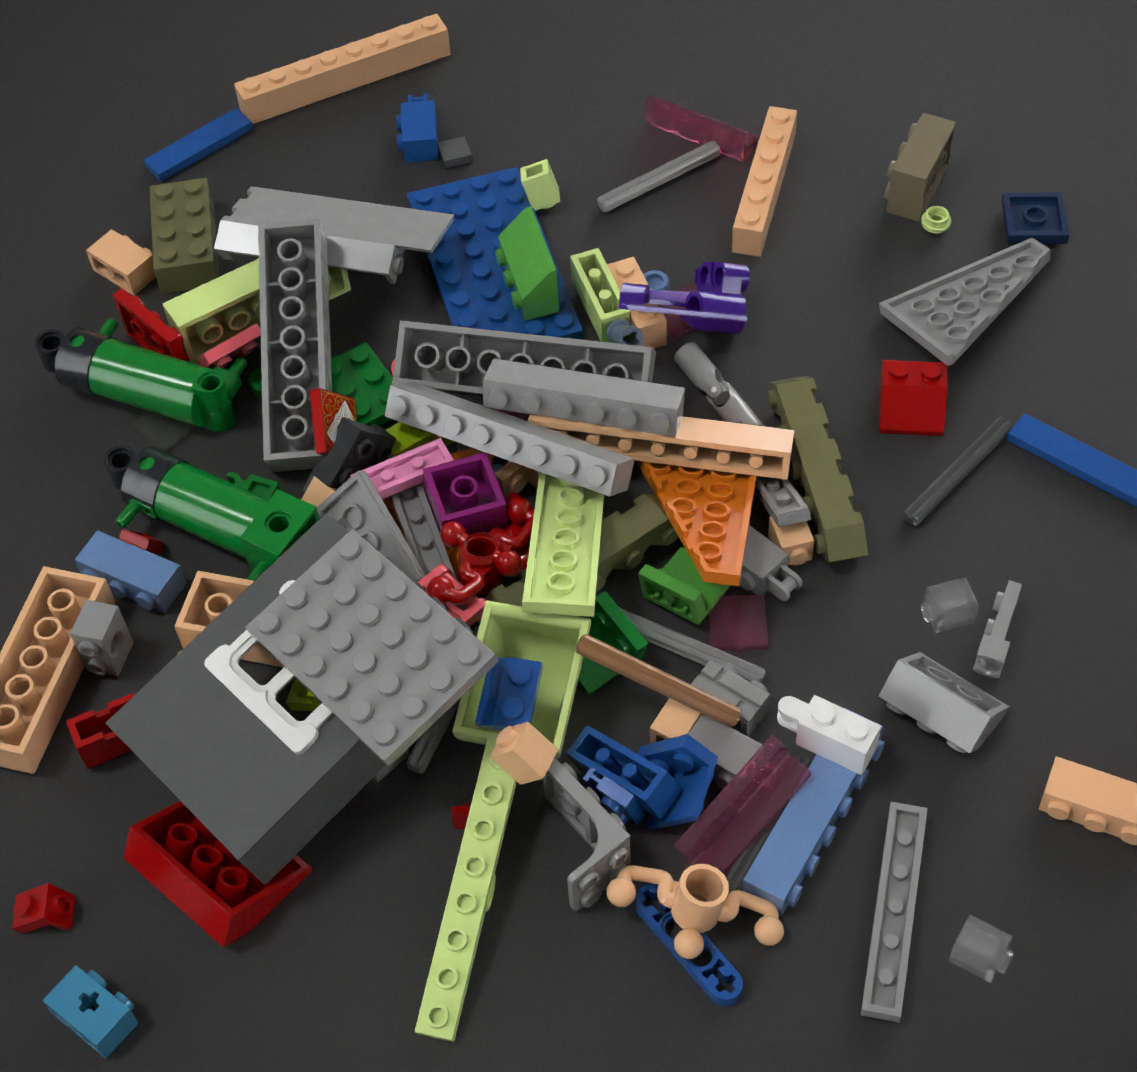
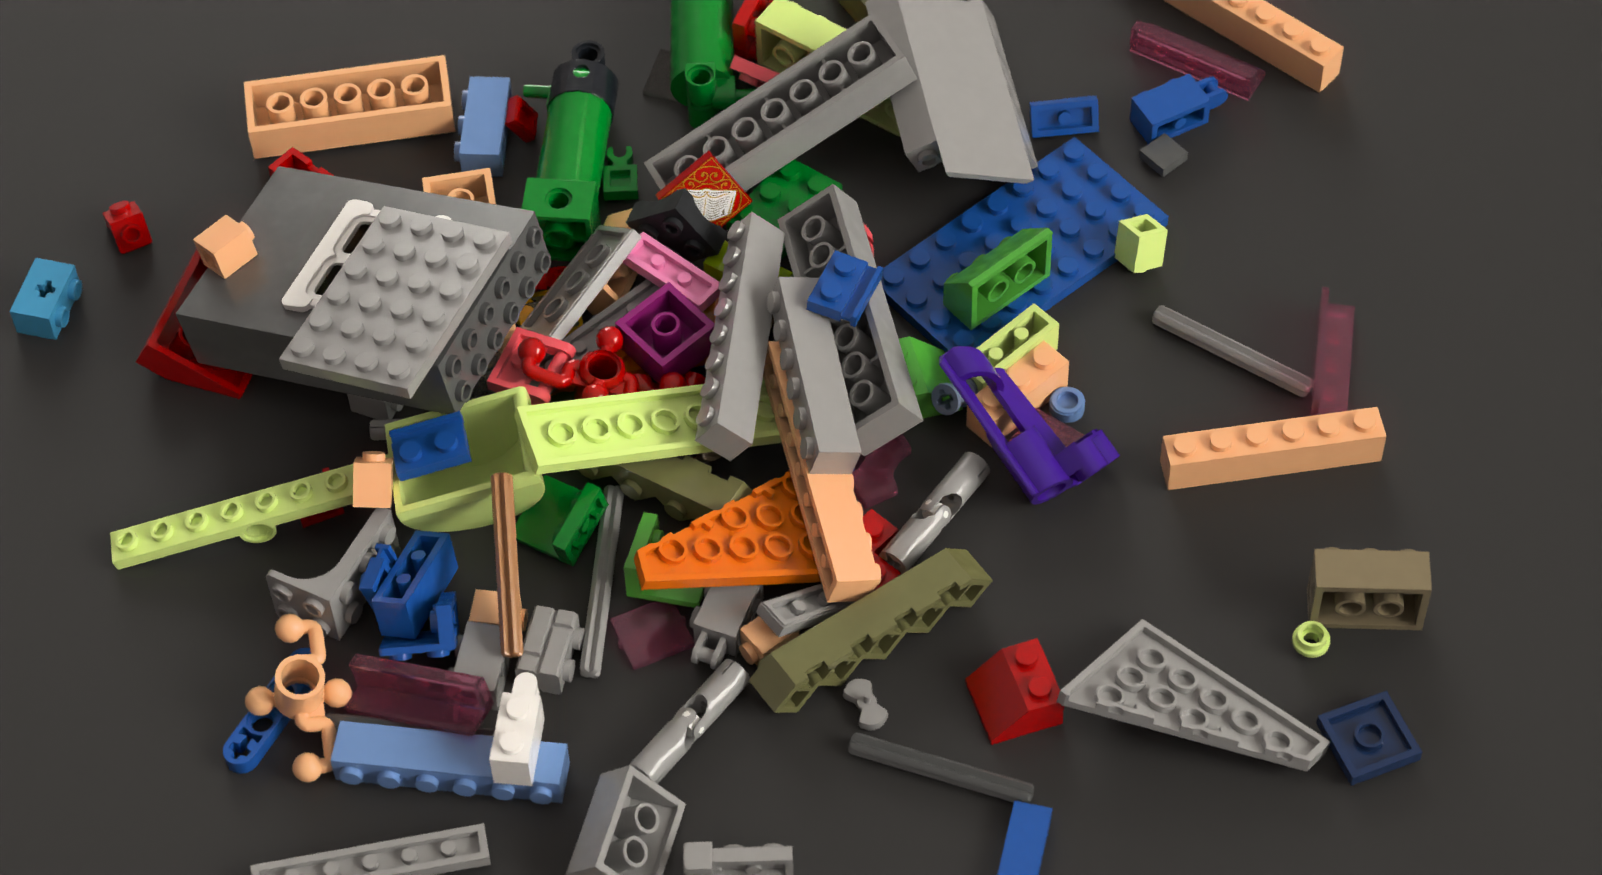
camera: 65 degrees right, 0 degrees up
(101, 638) = (394, 135): light grey brick -> none
(193, 784) = (226, 246): none -> light nougat brick
(377, 104) = (1195, 58): none -> clear pink panel
(387, 185) = (1064, 116): none -> blue plate
(519, 342) = (844, 288): none -> blue plate
(861, 636) = (685, 727): none -> light grey piece
(887, 498) = (871, 714): none -> light grey piece
(949, 605) = (748, 808): clear brick -> none

